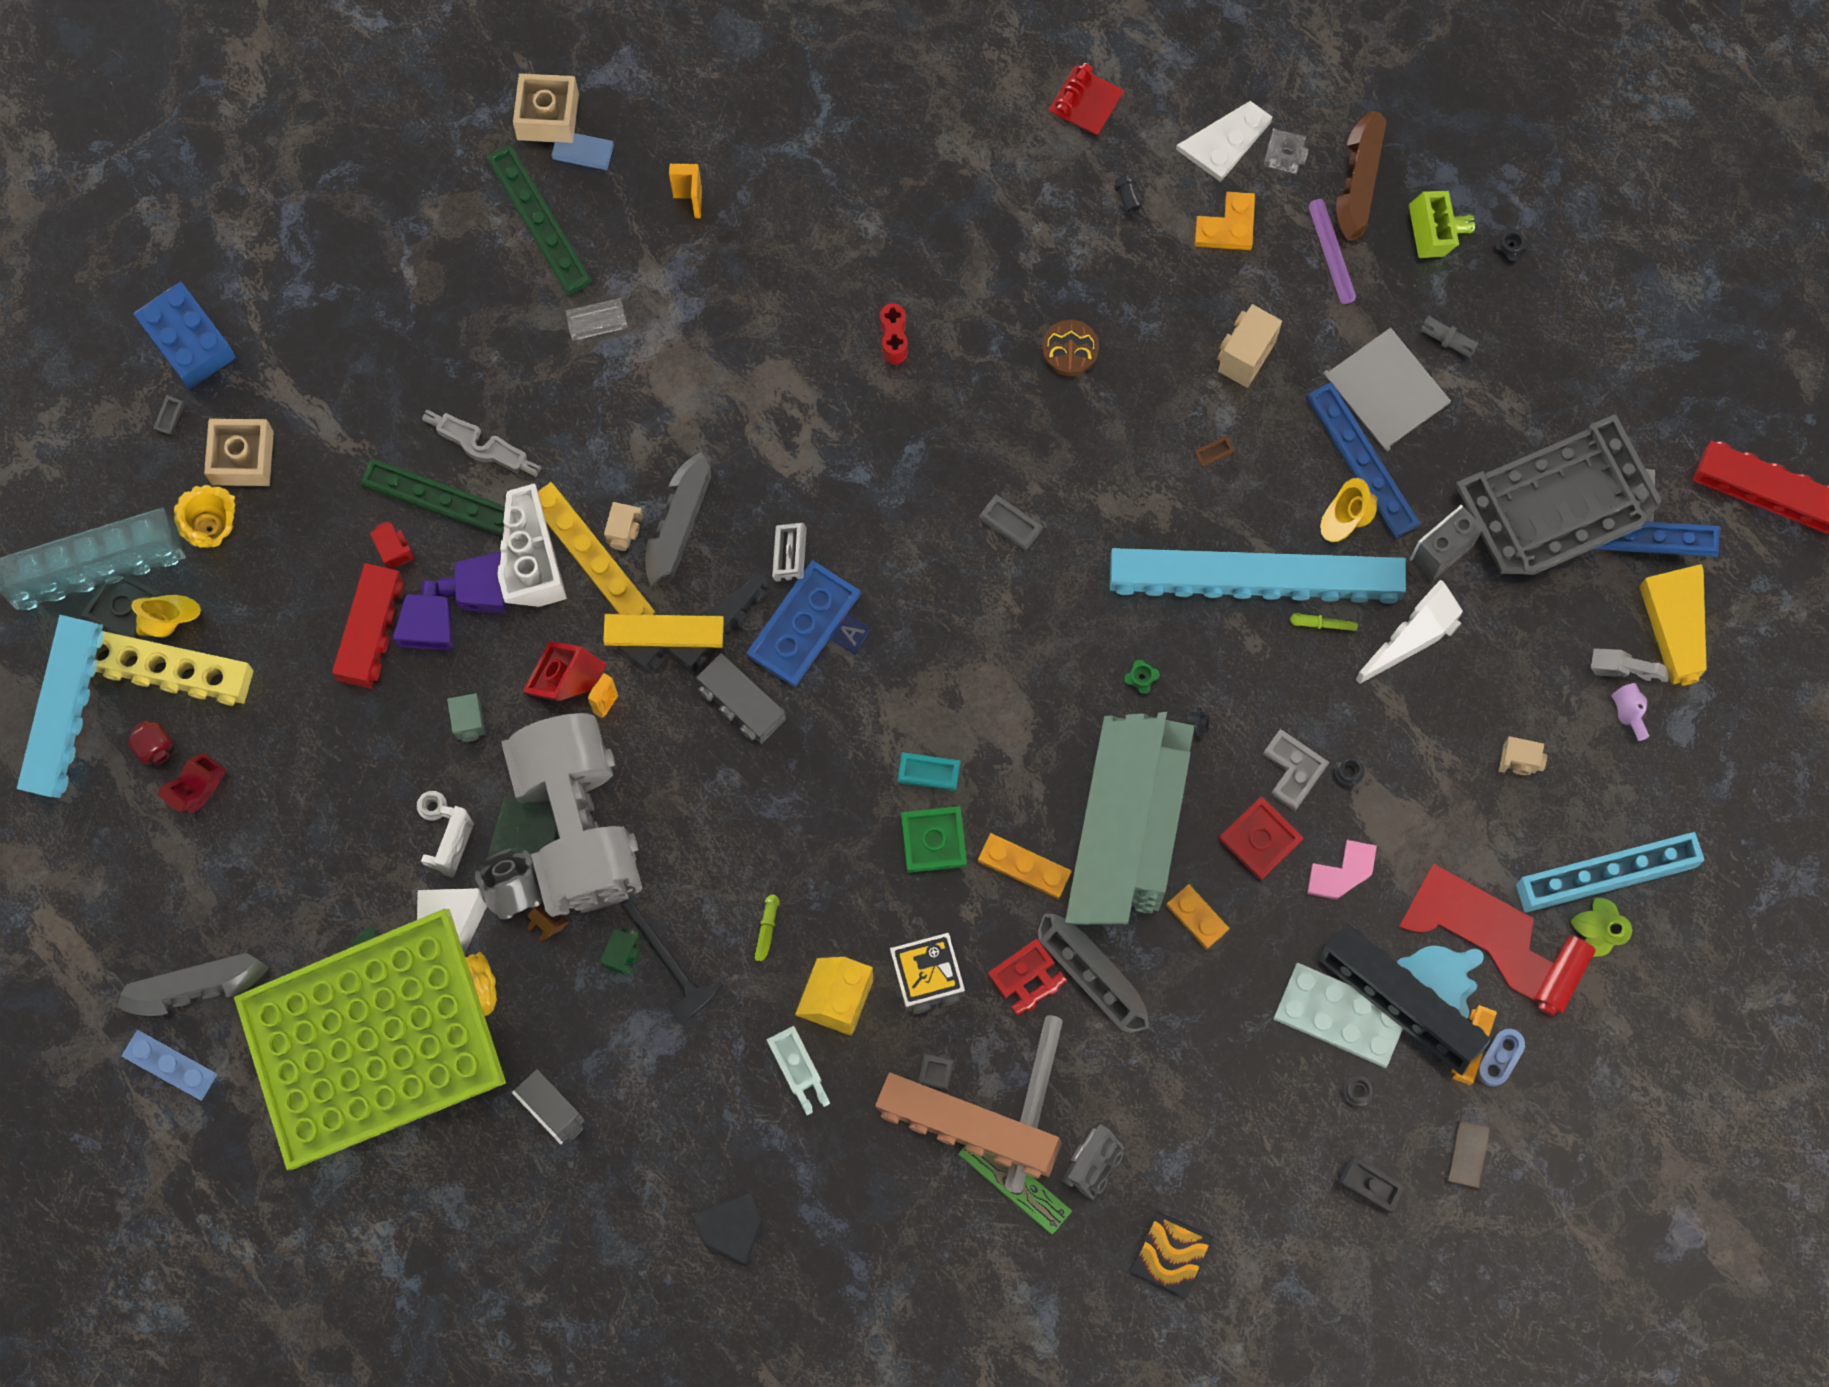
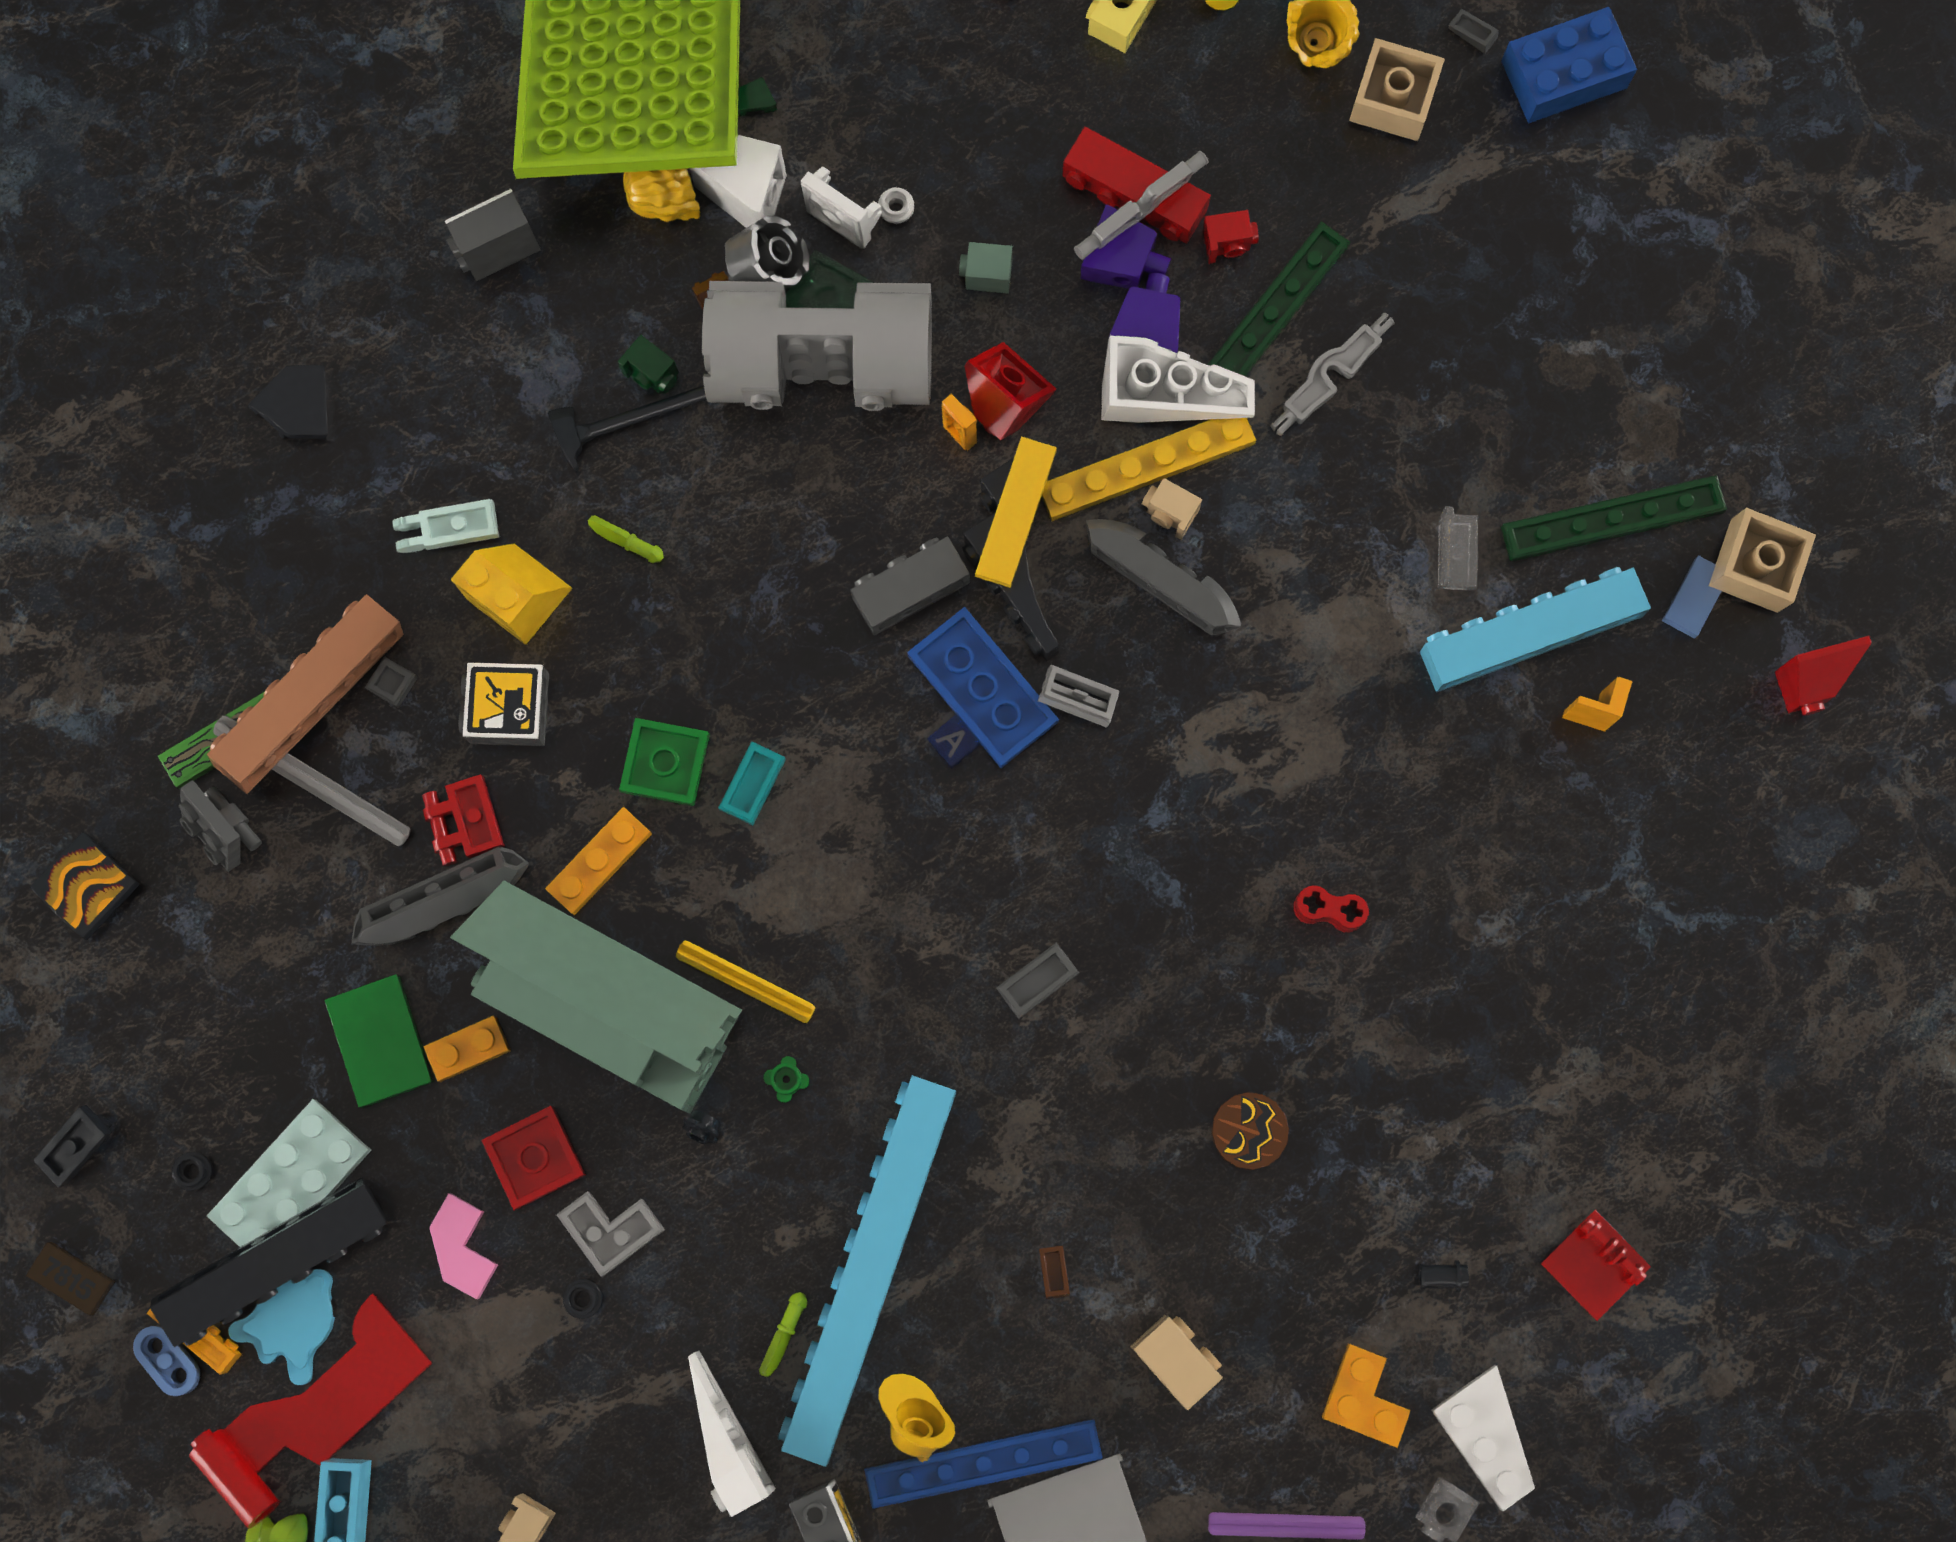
camera: 110 degrees right, 5 degrees up
(397, 611) = (1134, 212): none -> light grey piece
(620, 51) = (1818, 675): none -> red slope
(642, 250) = (1535, 628): none -> medium azure brick
(1080, 728) = (745, 981): none -> yellow axle
(1214, 984) = (379, 1041): none -> green tile

